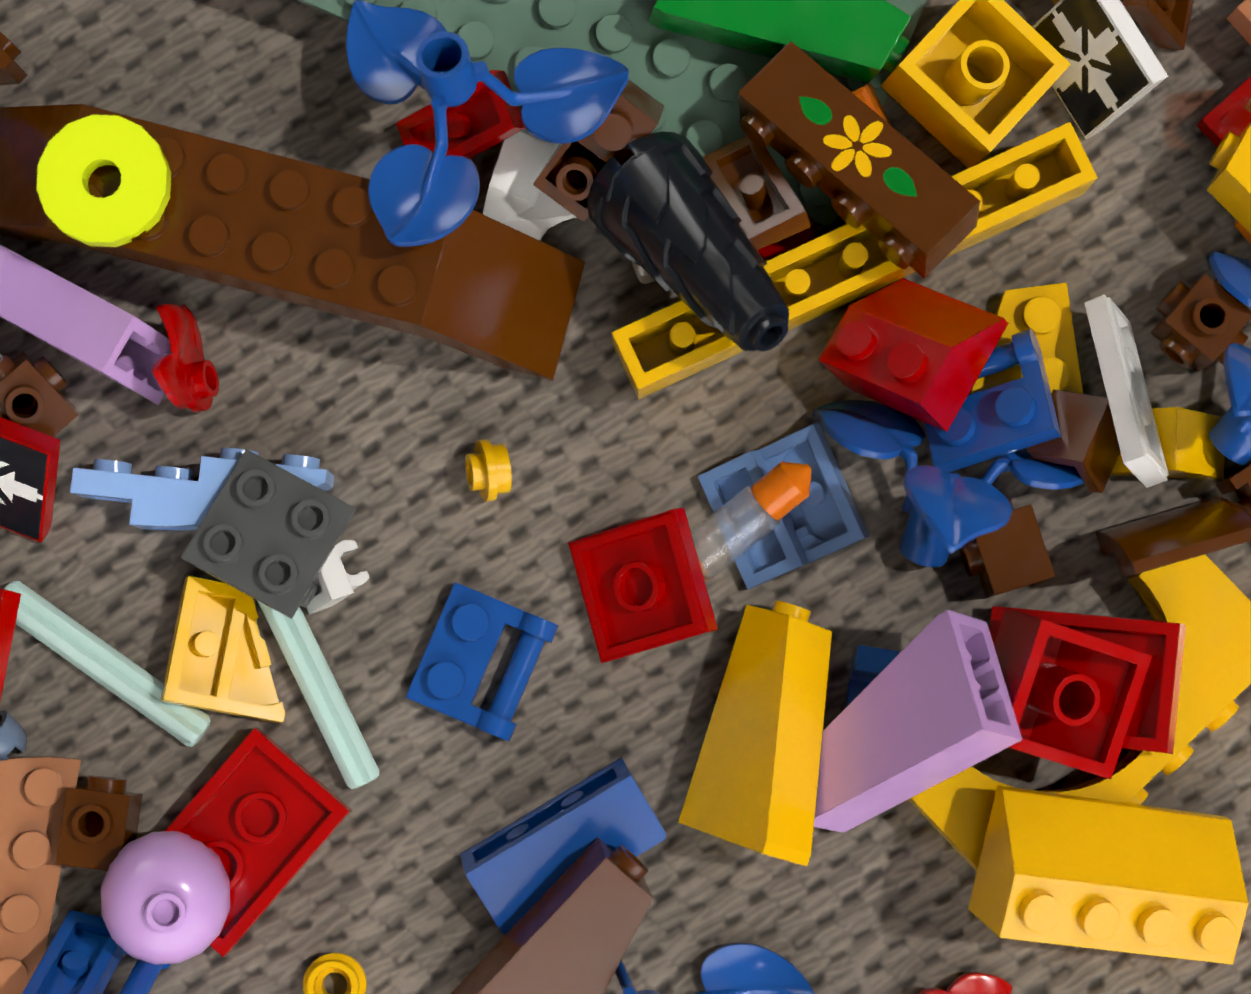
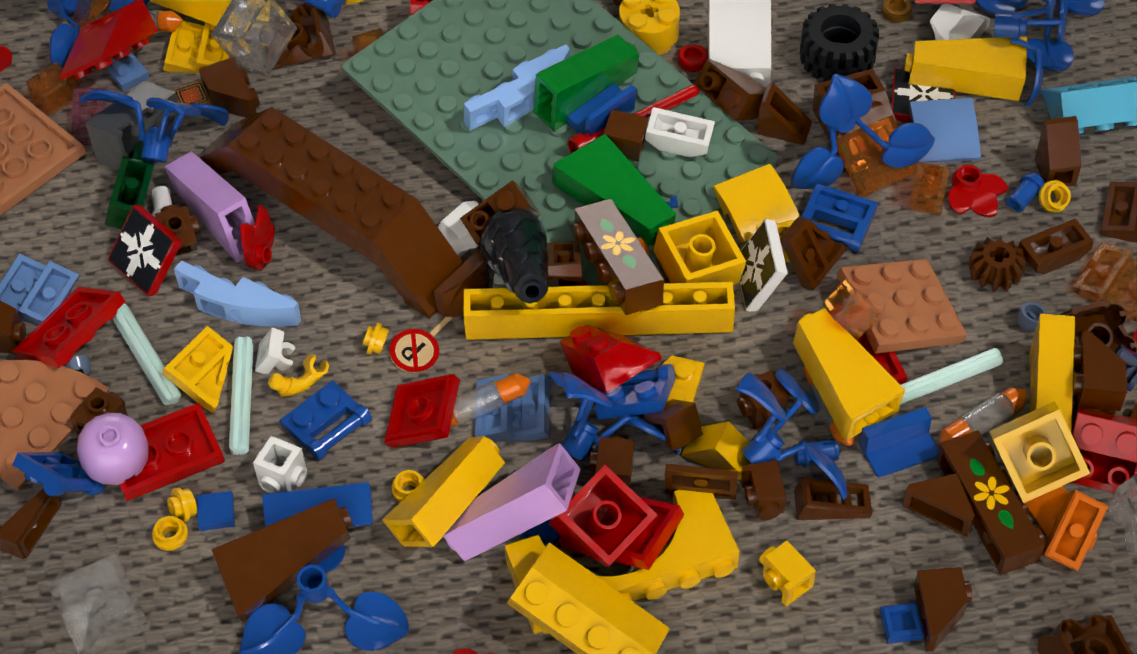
camera: 20 degrees right, 30 degrees down
(72, 159) = (261, 117): neon yellow tile -> none
(269, 534) = (254, 317): dark grey hinge -> none
(328, 929) = (182, 504): none -> yellow plate
(387, 909) = (215, 510): none -> blue tile
(411, 588) = (290, 386): none -> yellow piece
(430, 194) = (434, 142): blue plant -> none
(436, 803) = (280, 466): none -> white brick
(470, 126) = (445, 192): red plate -> none
(560, 452) = (416, 349): none -> piece
(593, 302) = (470, 275): none -> reddish brown slope
(664, 724) = (403, 479): none -> yellow plate
(1126, 391) = (706, 407): white tile -> none

